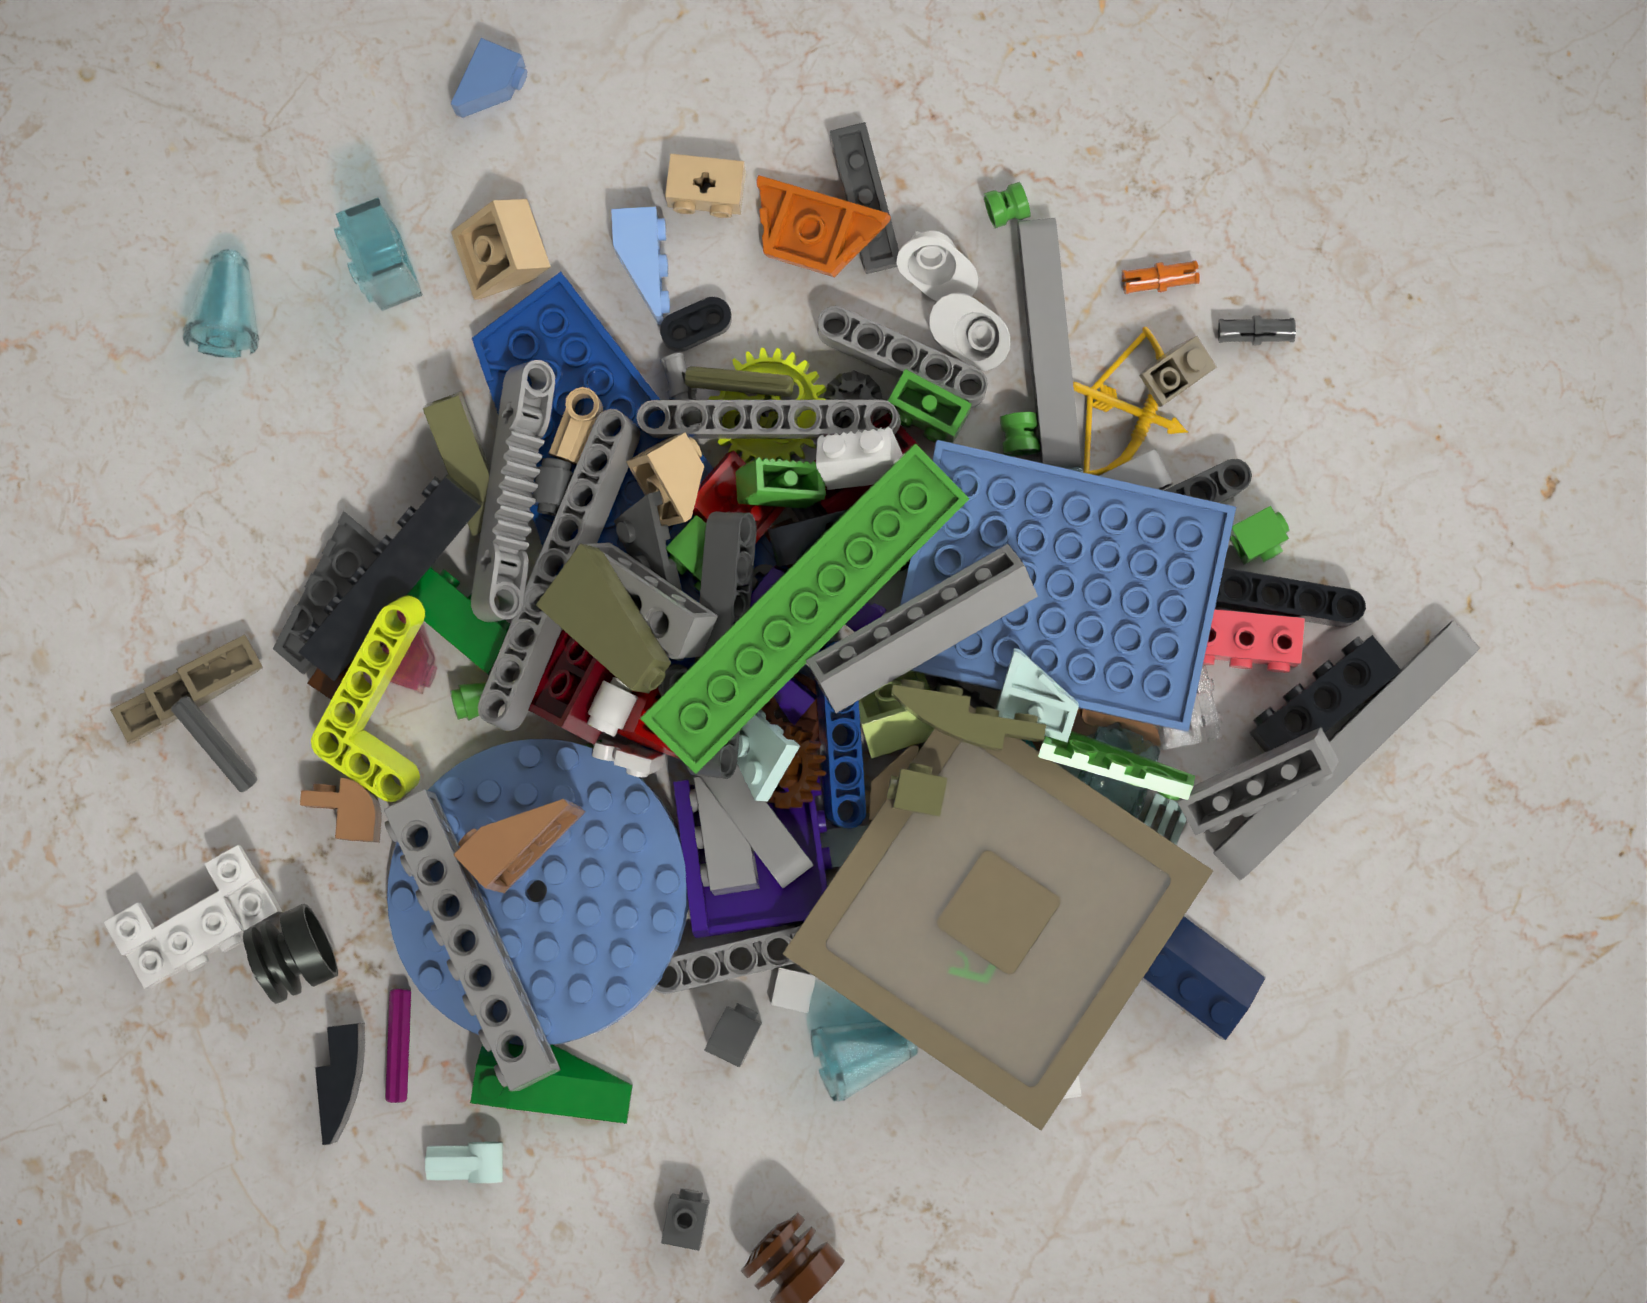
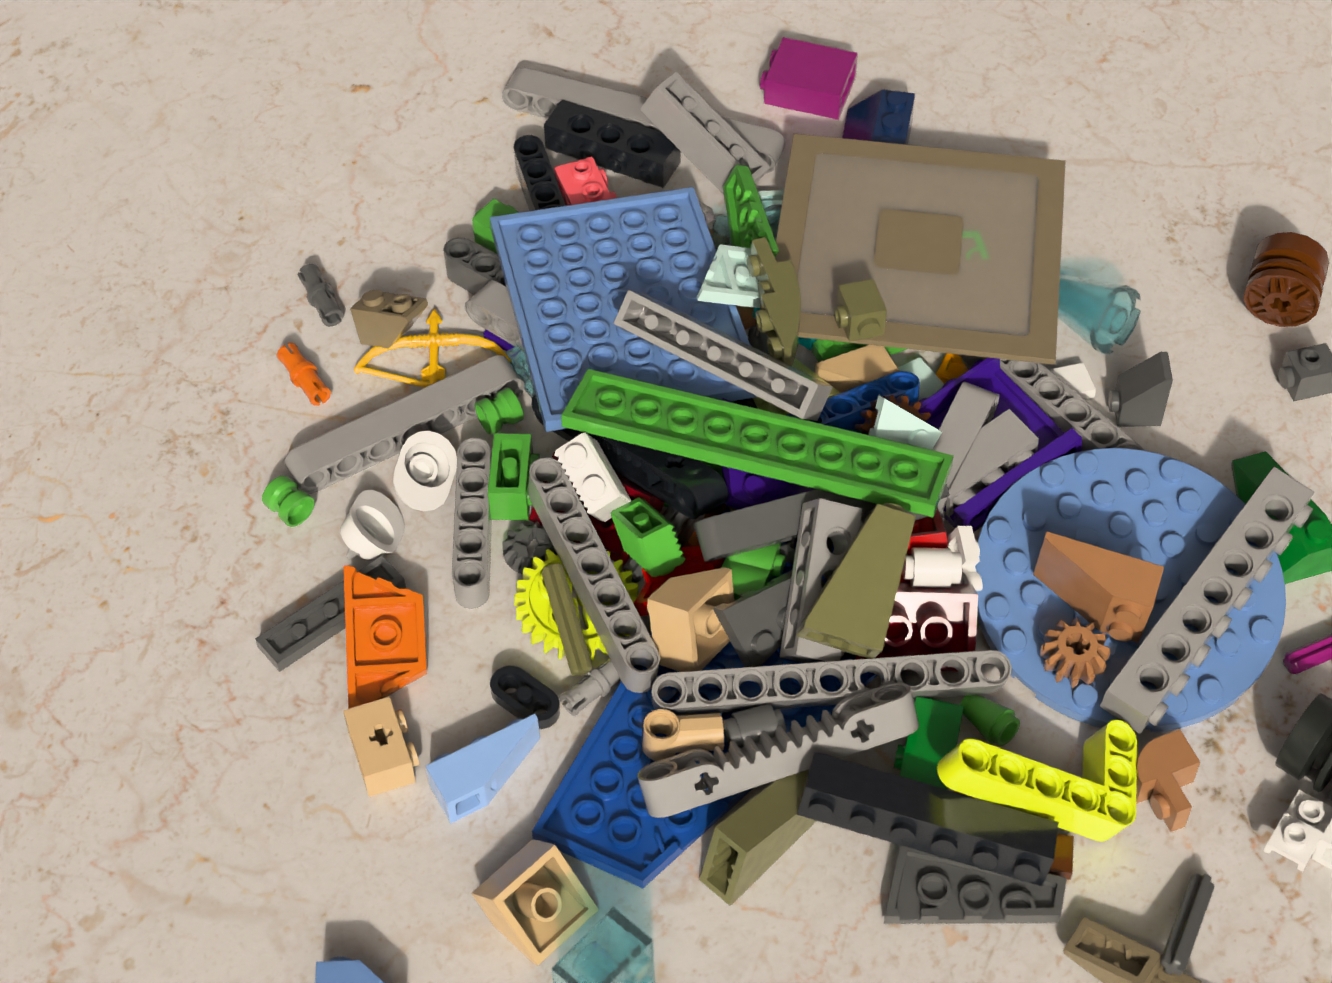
camera: 120 degrees left, 30 degrees down
(471, 802) = (1060, 649): none -> medium nougat gear
(1324, 955) = (809, 78): none -> magenta brick

